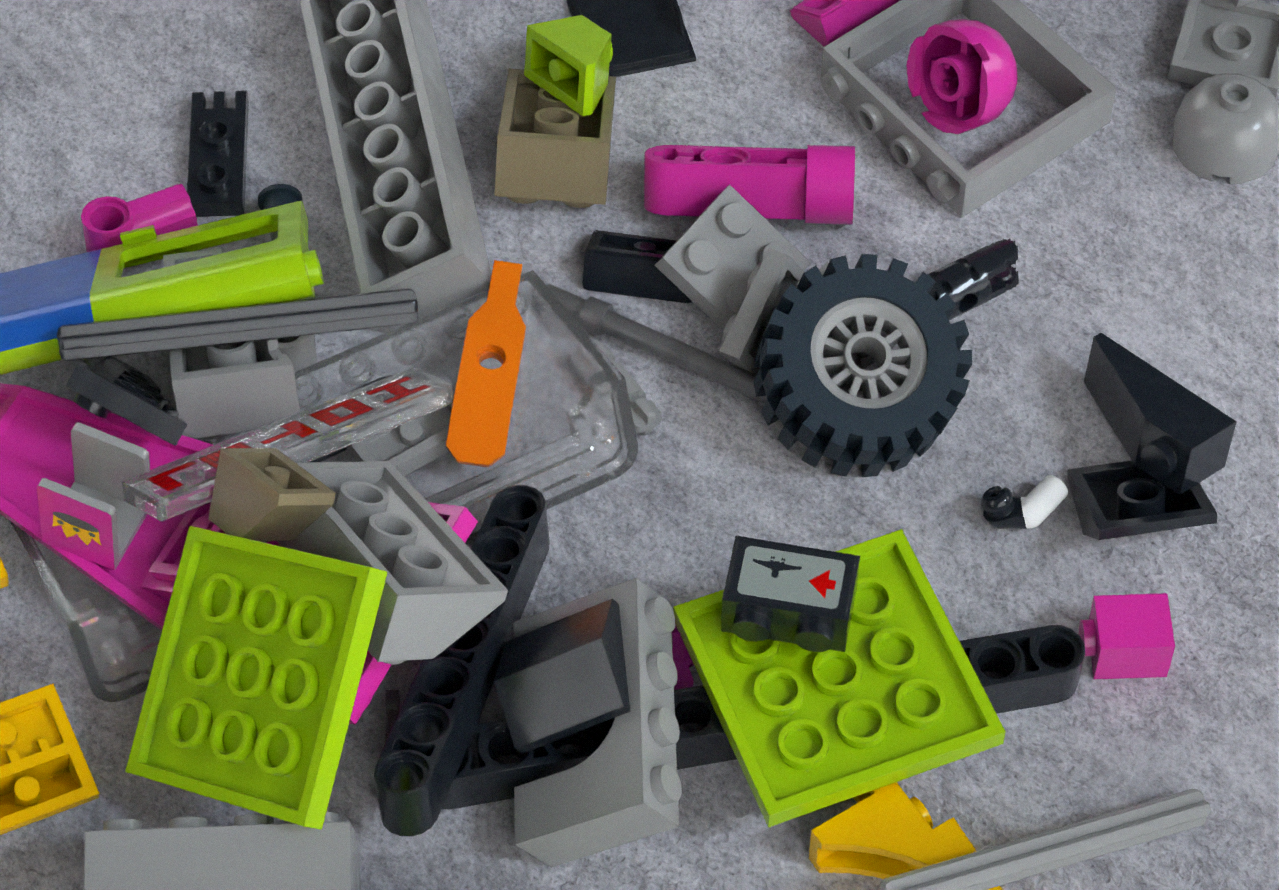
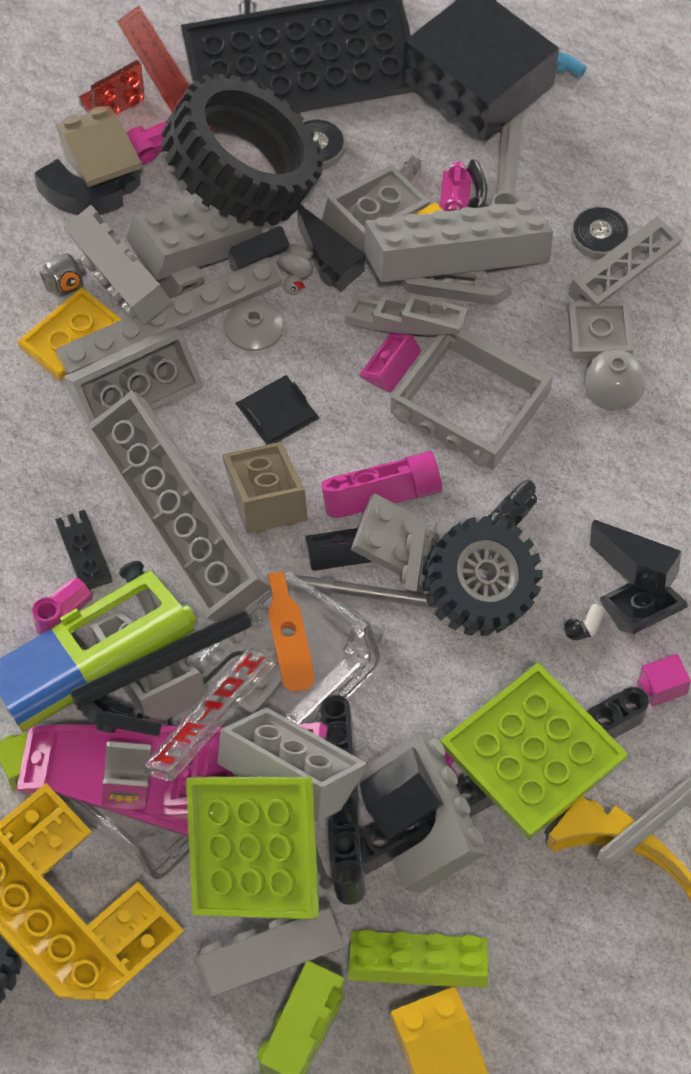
camera: 20 degrees left, 5 degrees up
(265, 495) = (221, 750): dark tan slope -> none
(569, 60) = (258, 443): lime slope -> none
(789, 594) = (500, 717): brick -> none
(961, 74) = (474, 395): dark pink cylinder -> none

